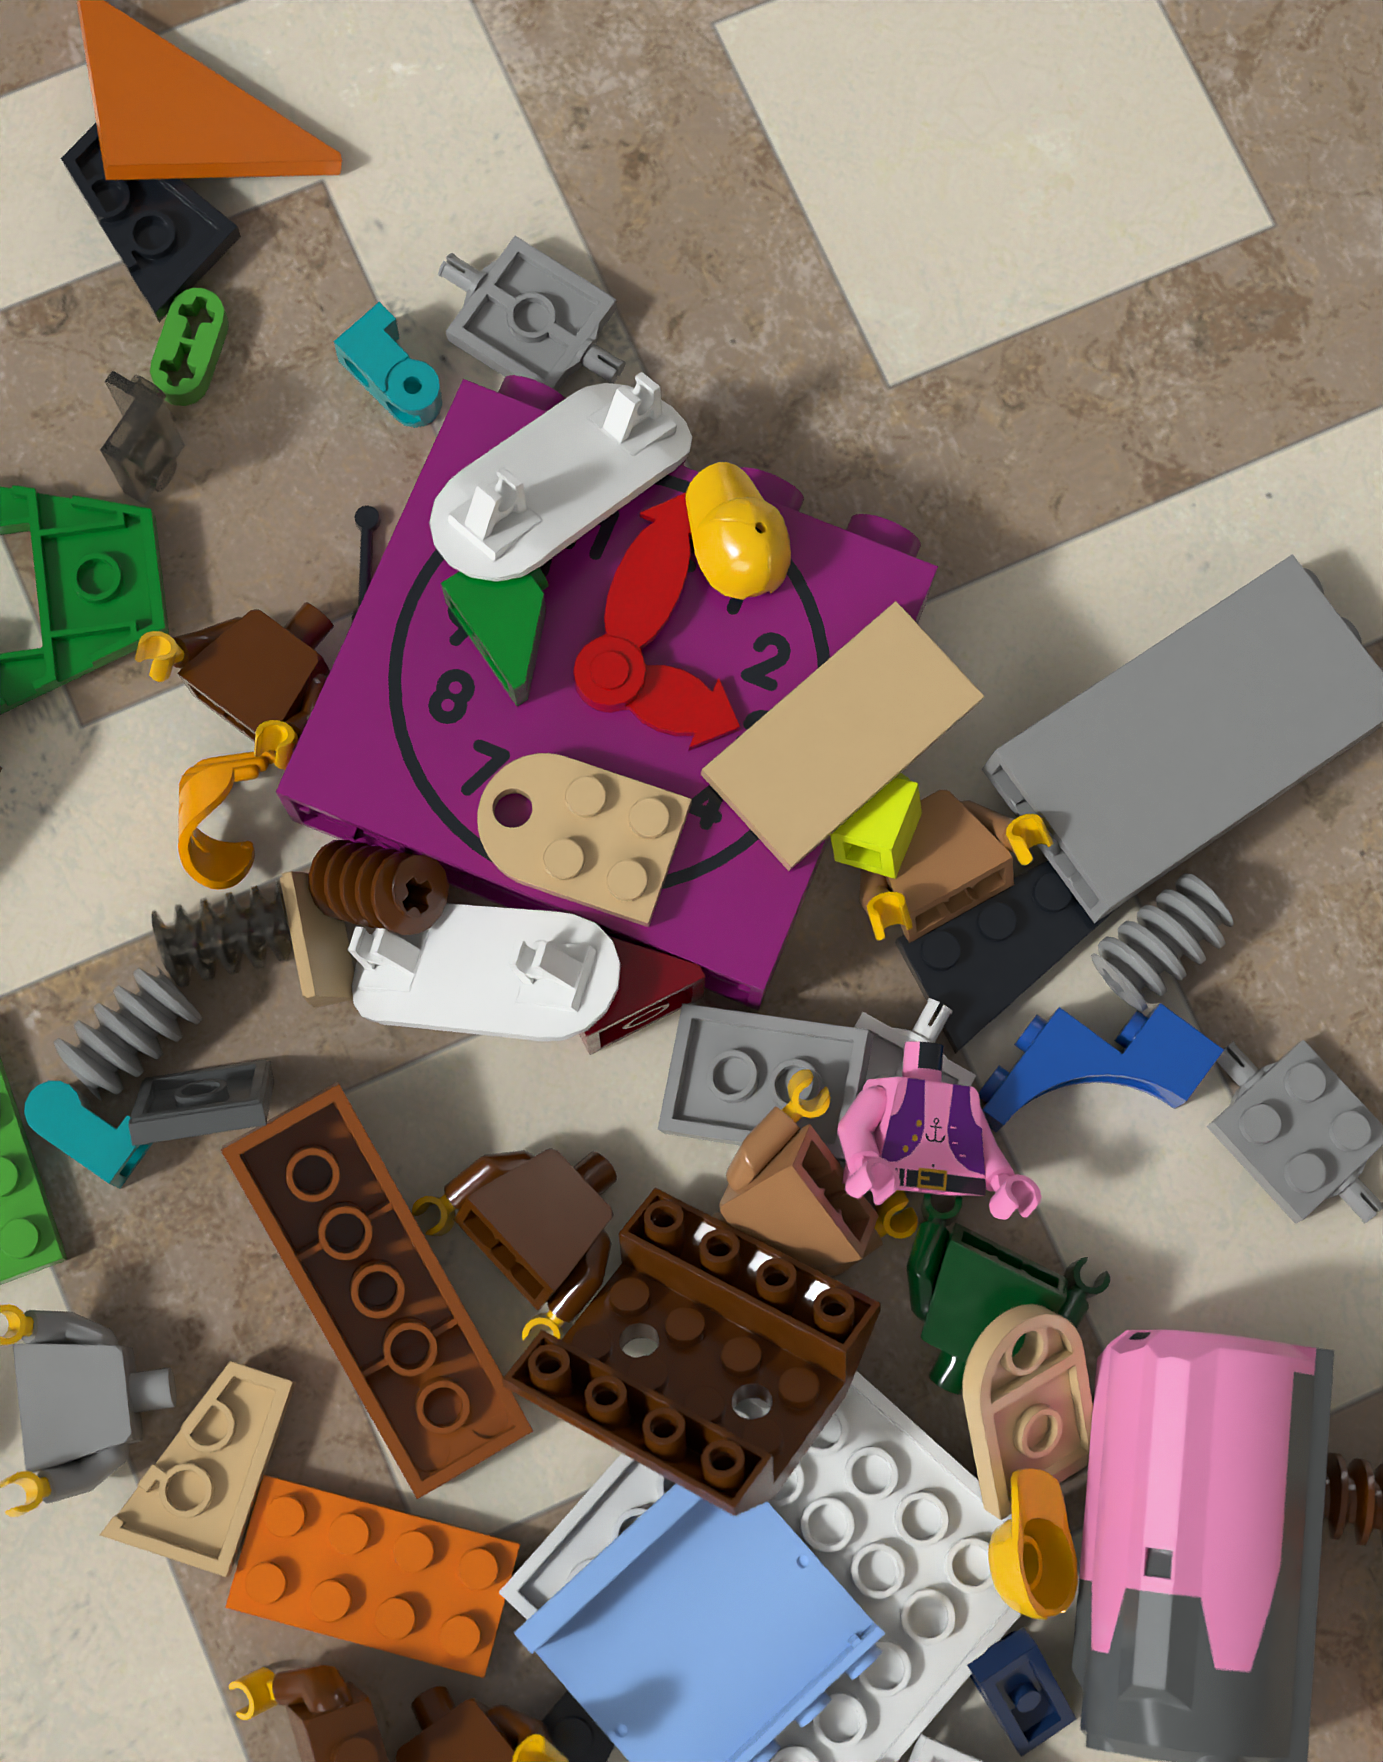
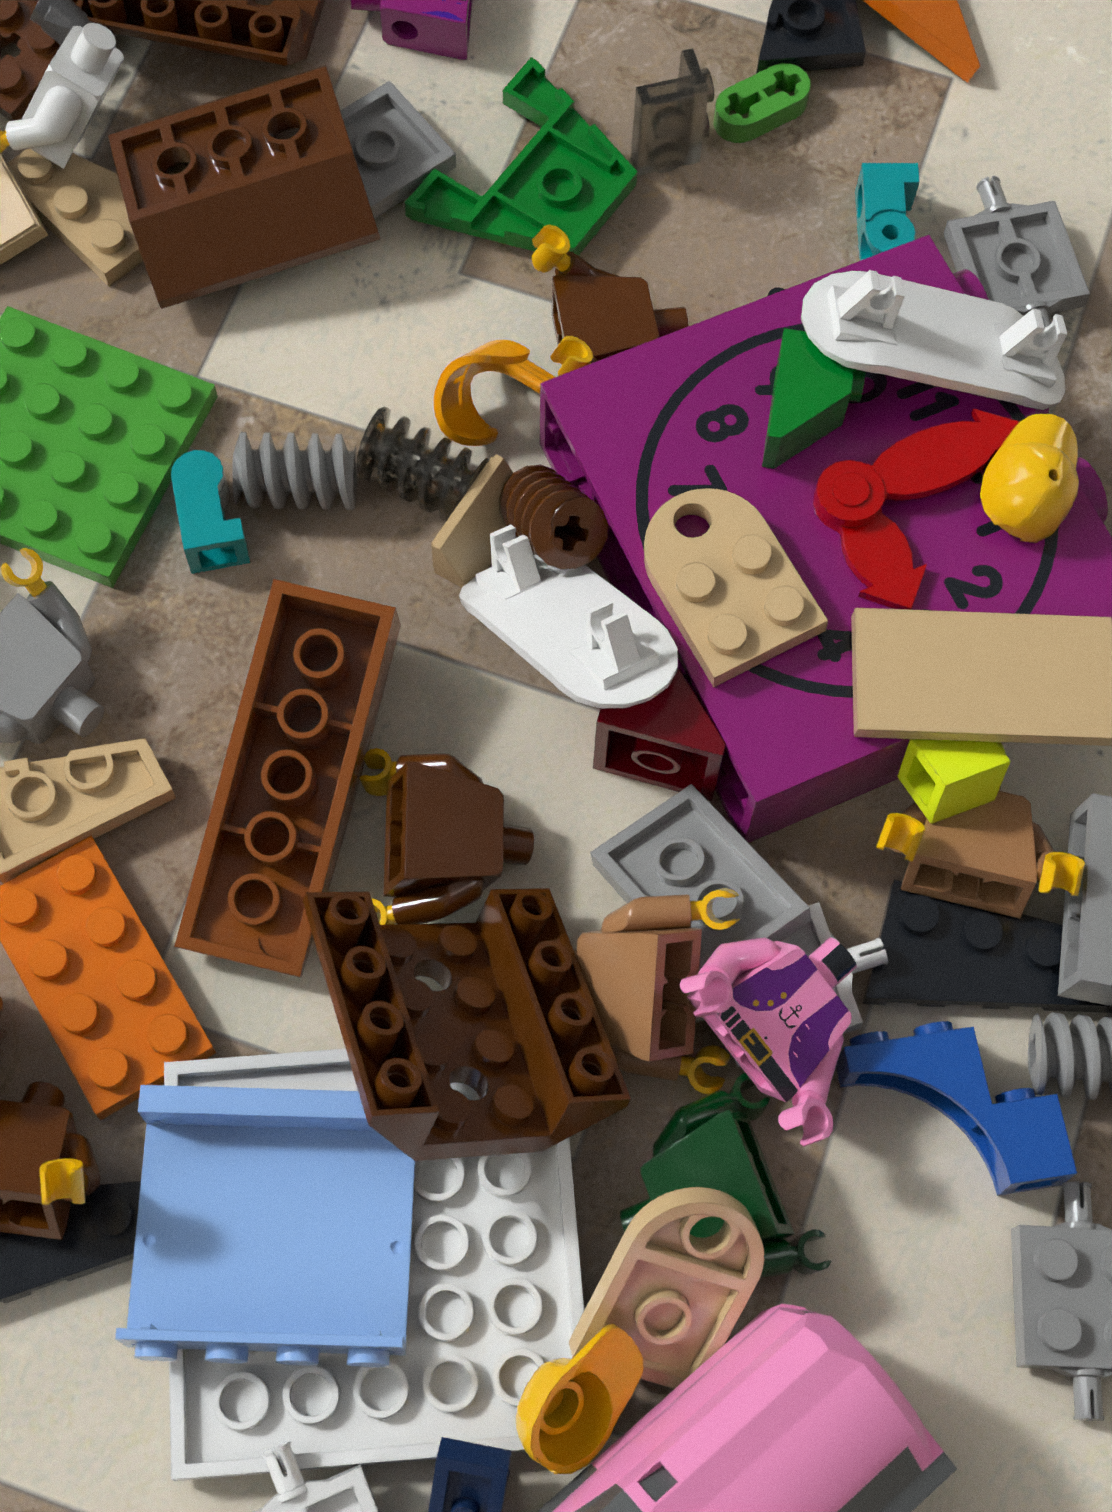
camera: 45 degrees right, 10 degrees down
(202, 1102) = (295, 551): dark grey plate -> none

